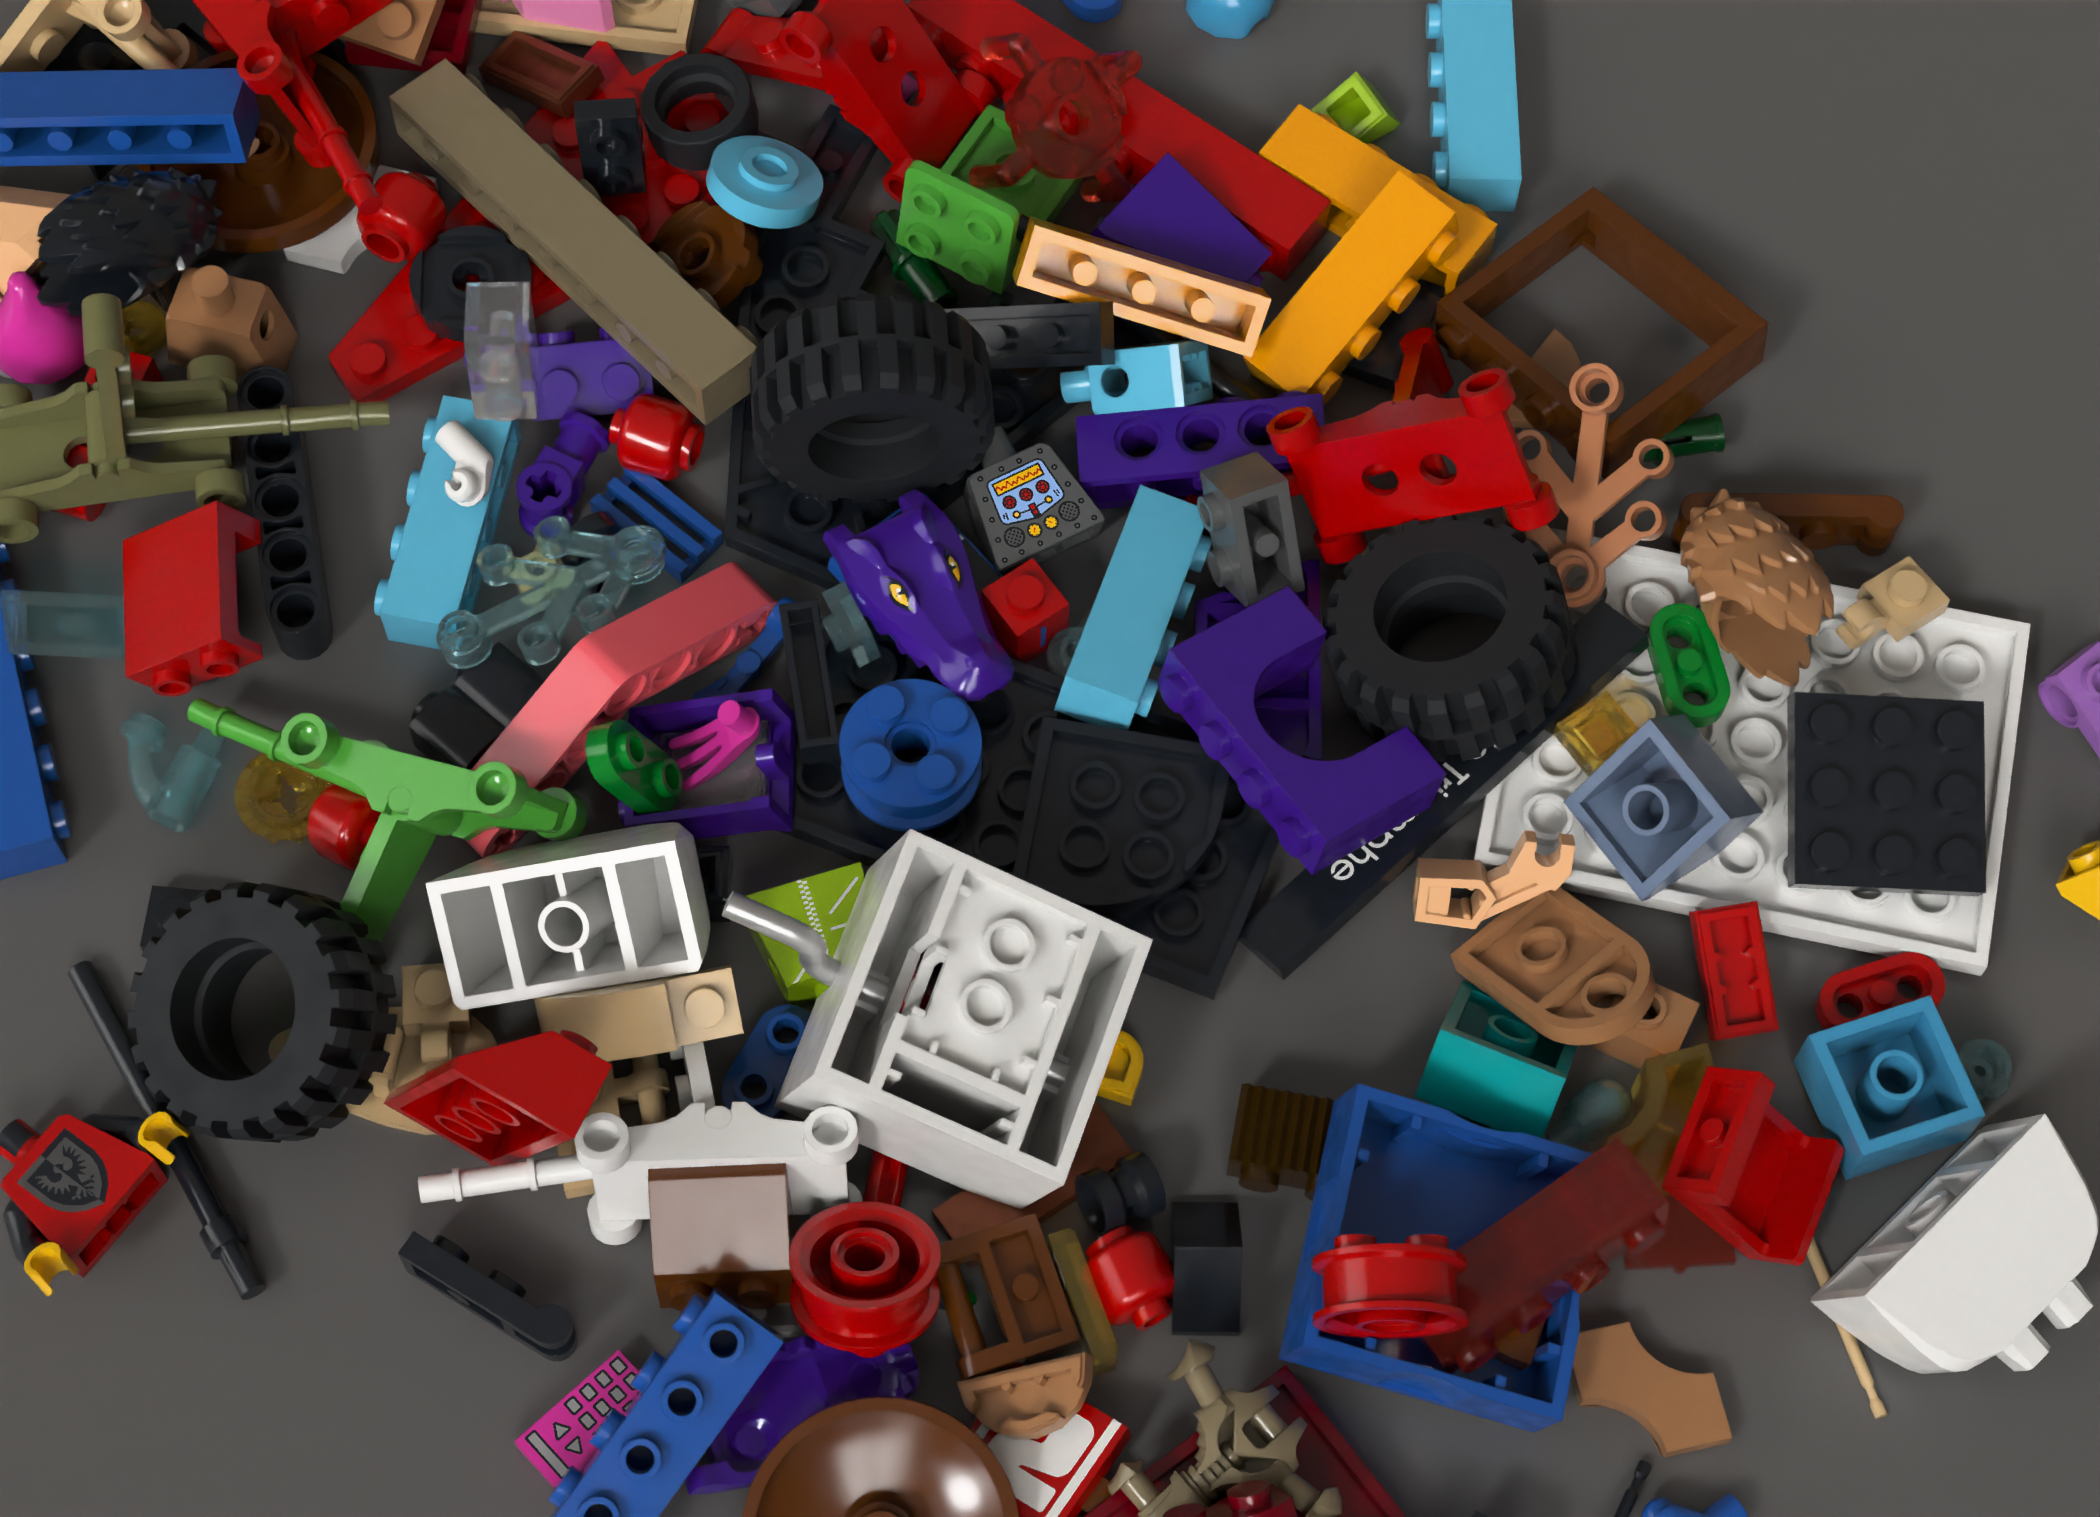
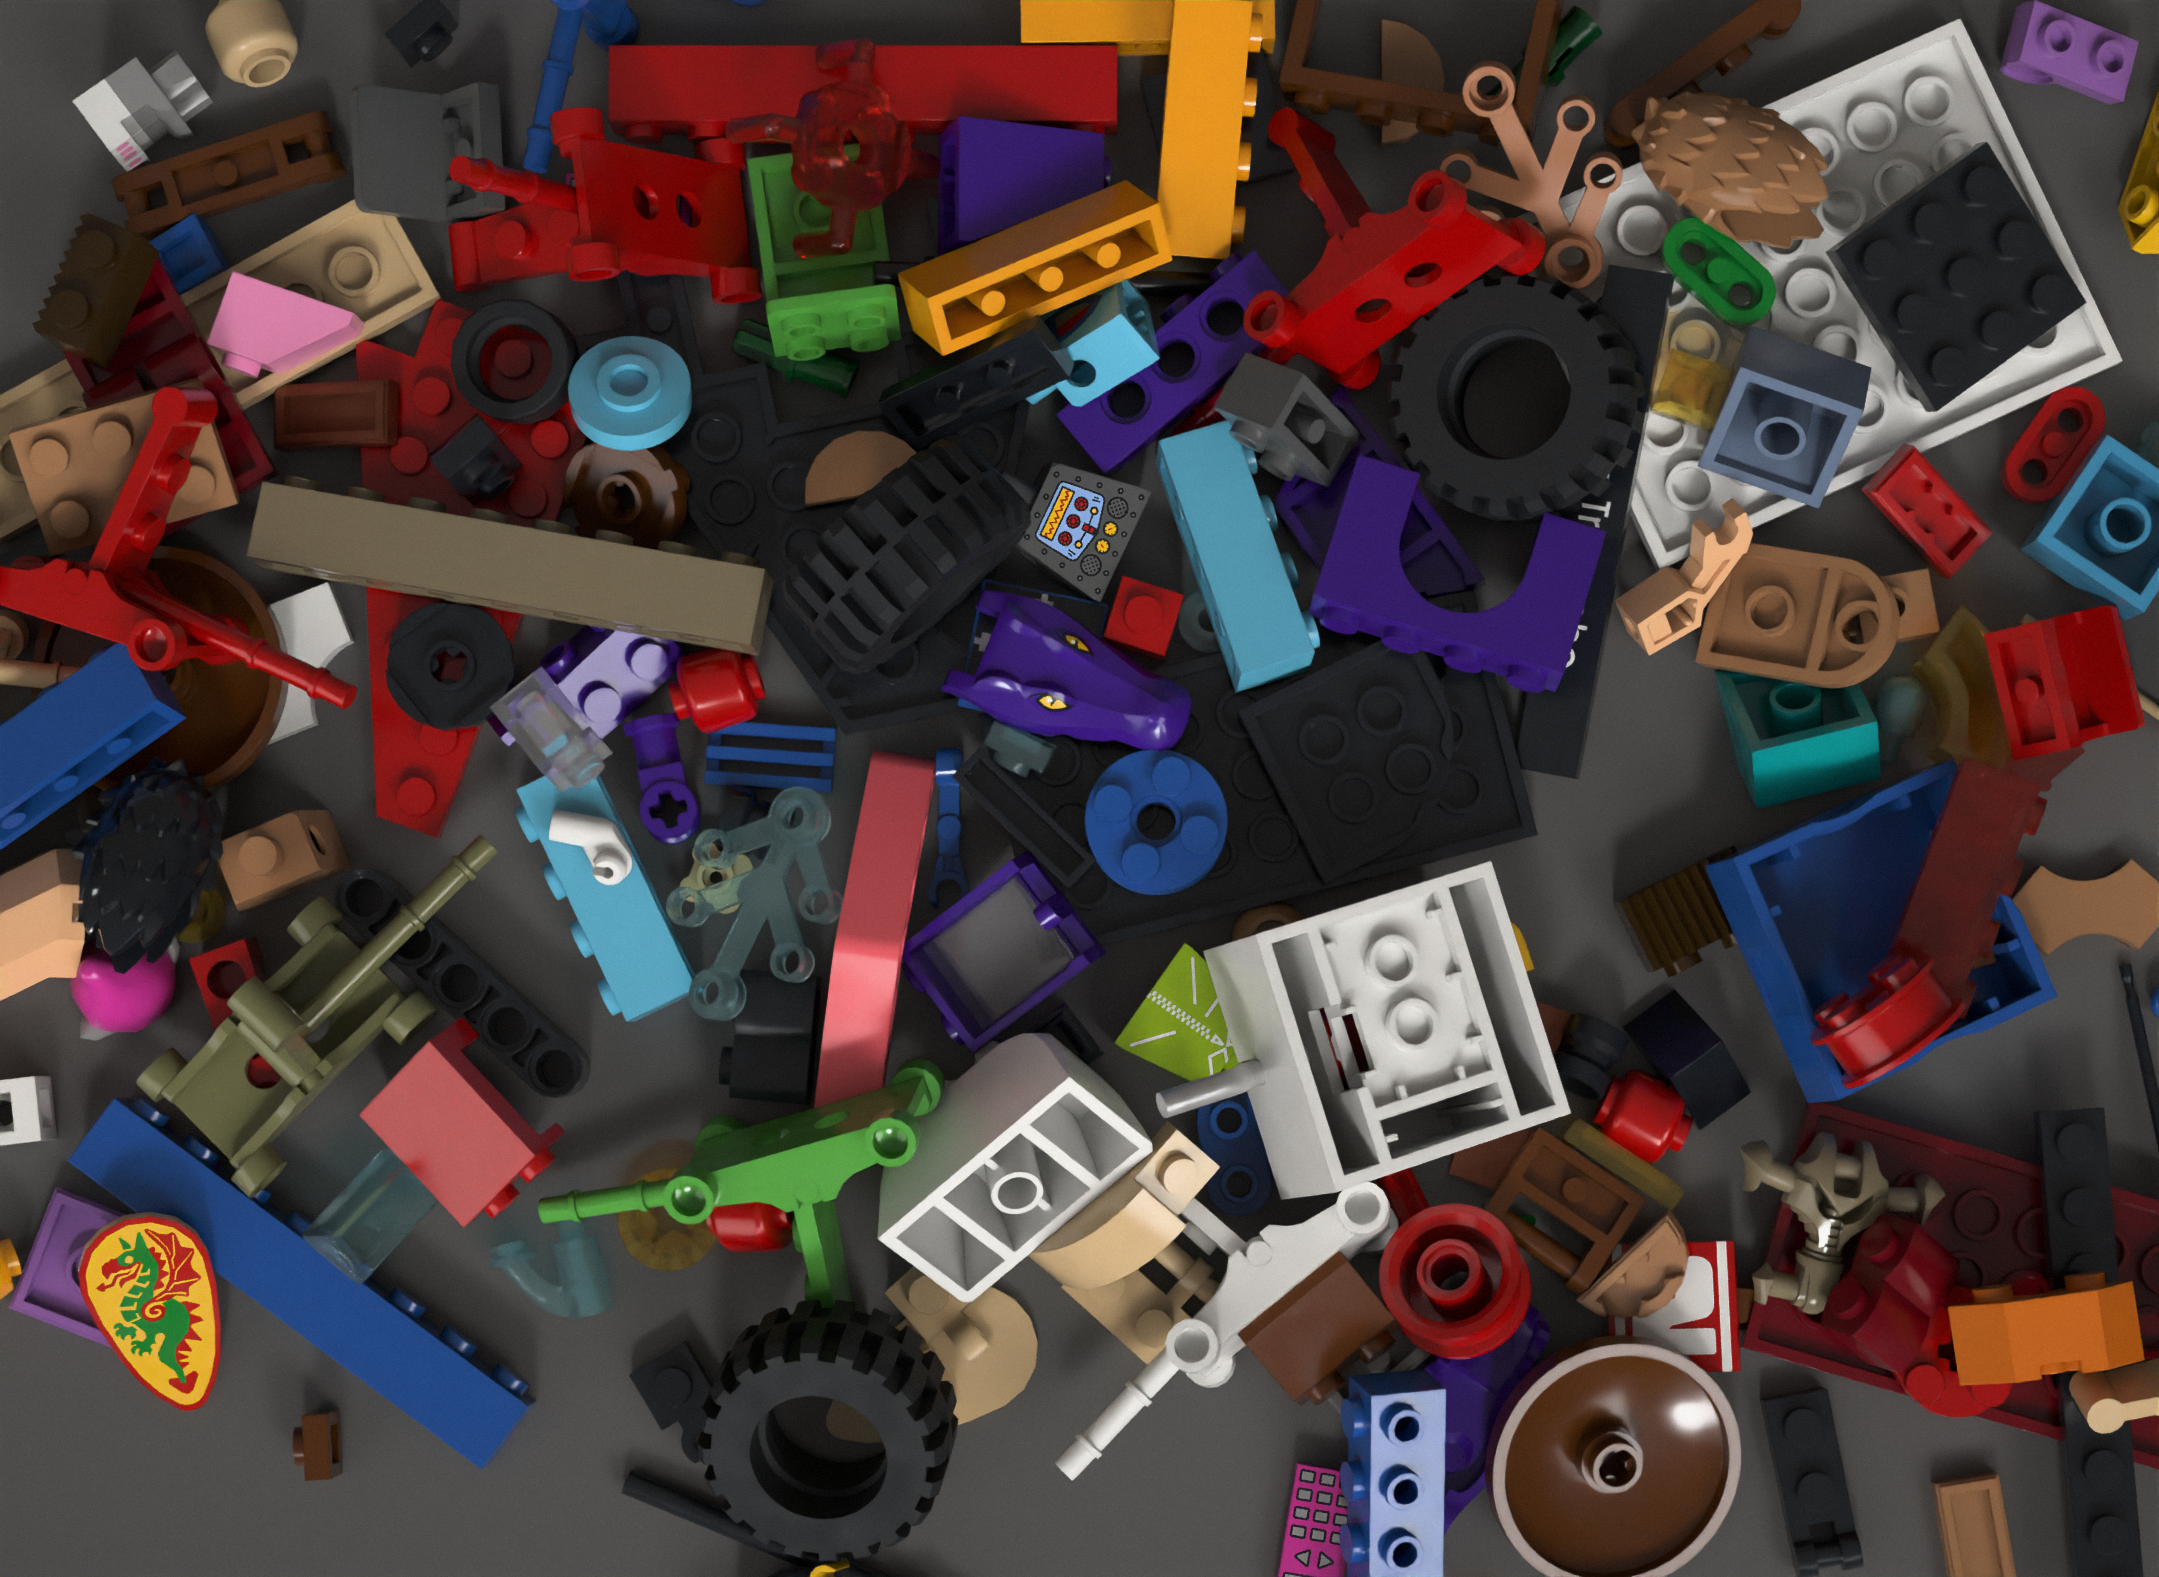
camera: 30 degrees left, 20 degrees up
(408, 217) = (342, 642): red head -> none
(491, 1298) = (1171, 1499): black plate -> none
(508, 1096) = (1084, 1358): red slope -> none
(632, 767) = (949, 1006): green plate -> none
(726, 738) = (1003, 914): dark pink piece -> none
(1894, 600) = (1843, 84): tan plate -> none

